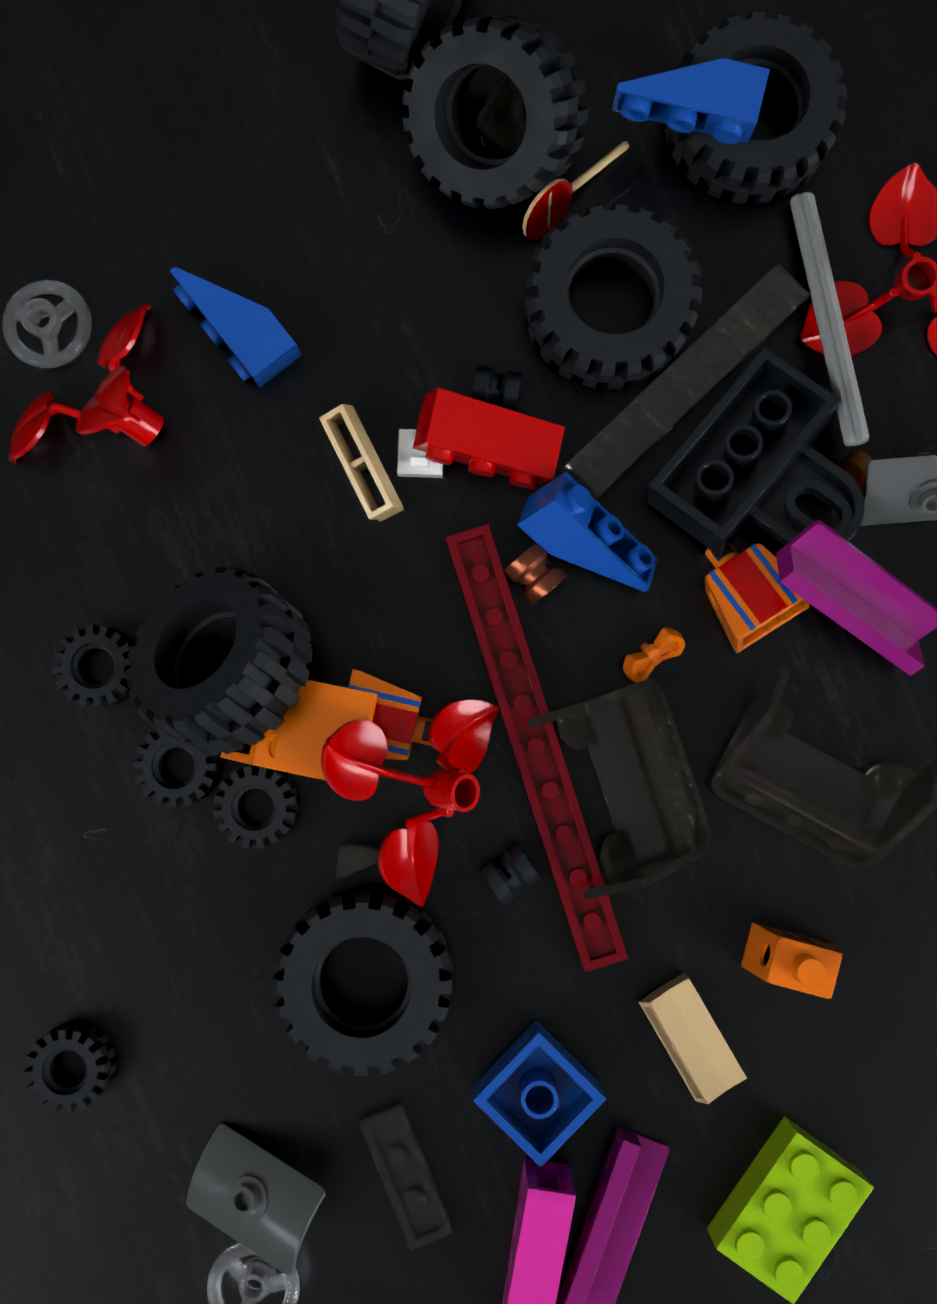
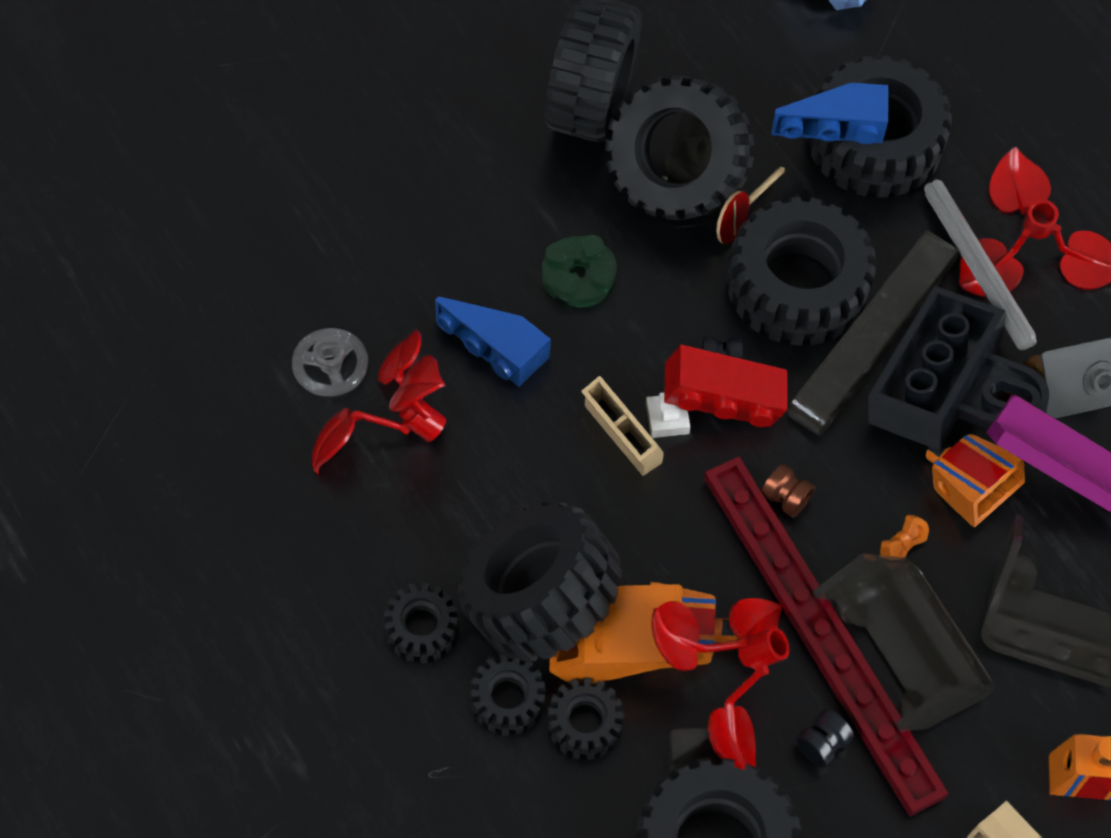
camera: 15 degrees left, 25 degrees down
(335, 230) = (583, 252): none -> clear green plate
(581, 531) = (817, 449): blue slope -> none

